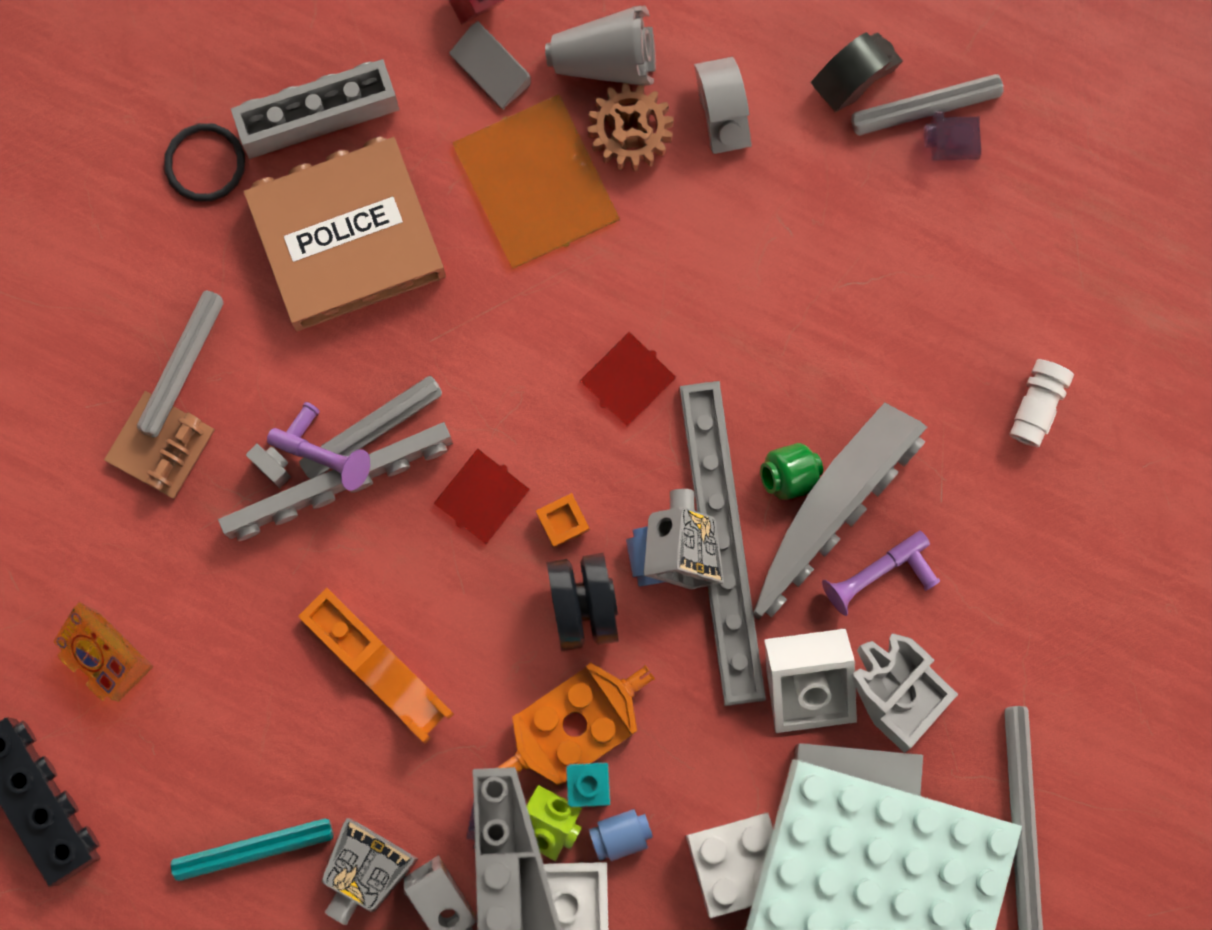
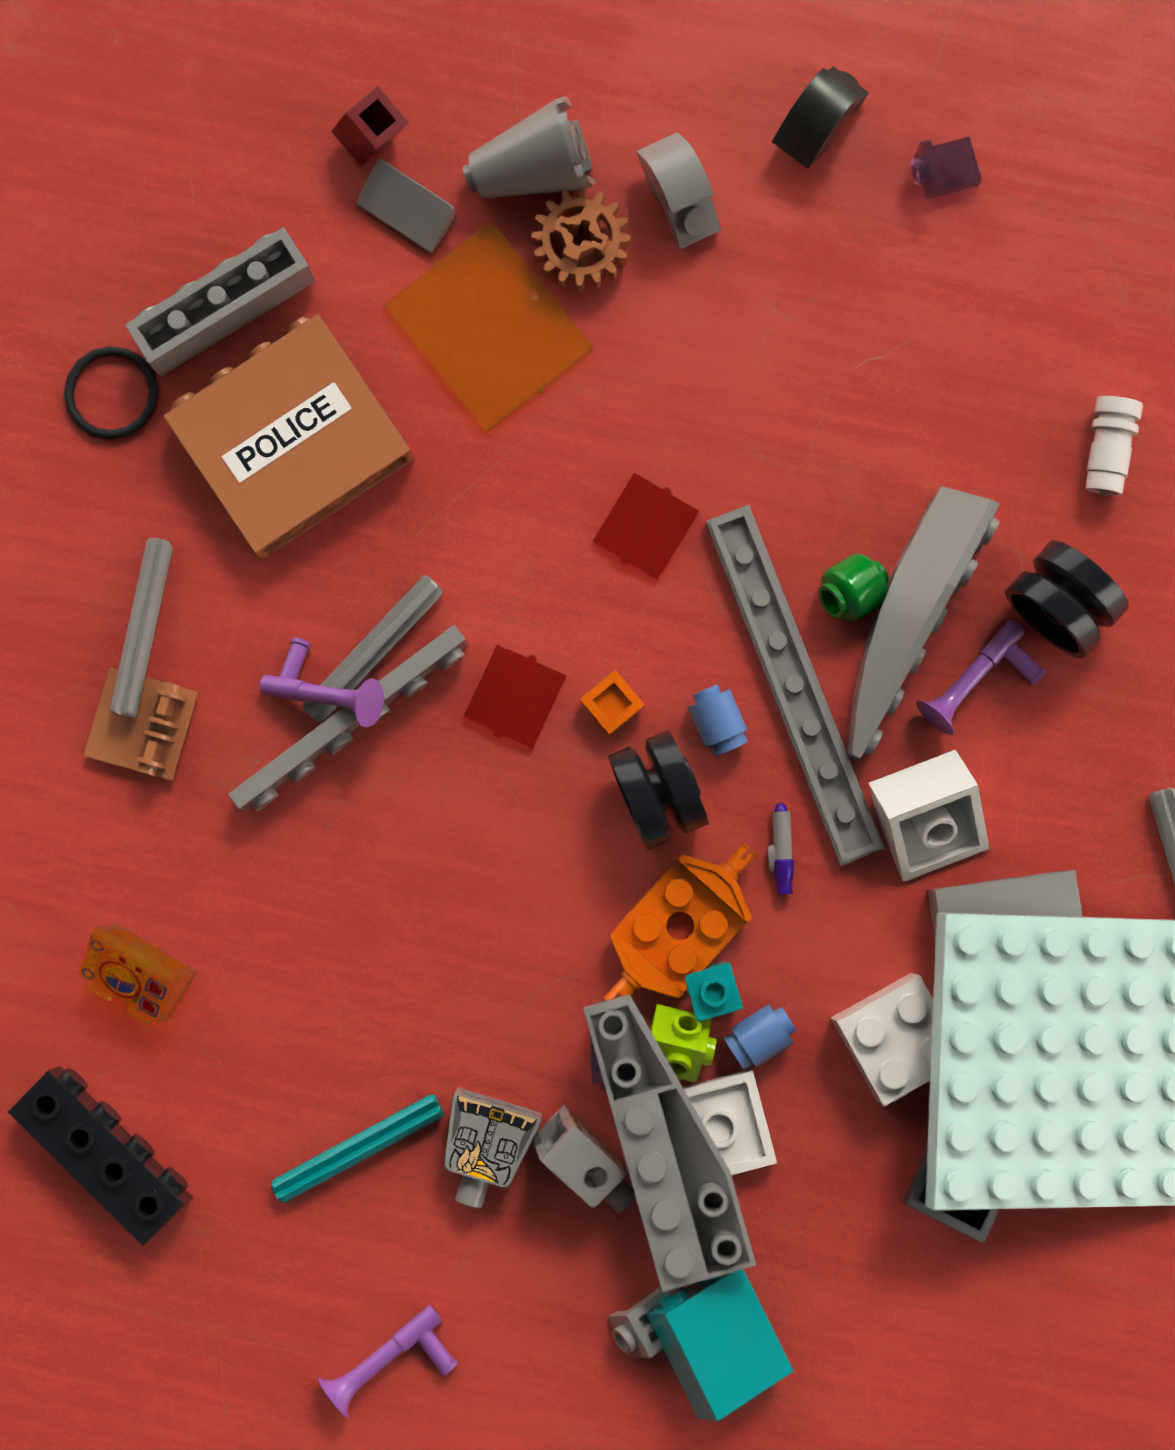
camera: 10 degrees left, 5 degrees up
(270, 463) = (270, 716): light grey plate -> none
(375, 664) = (443, 912): orange piece -> none
(676, 682) = (780, 852): none -> piece
(683, 545) = (754, 698): light grey torso -> none
(901, 689) = (1034, 803): light grey plate -> none
(927, 104) = (907, 136): light grey axle -> none
(969, 522) = (1067, 599): none -> black wheel

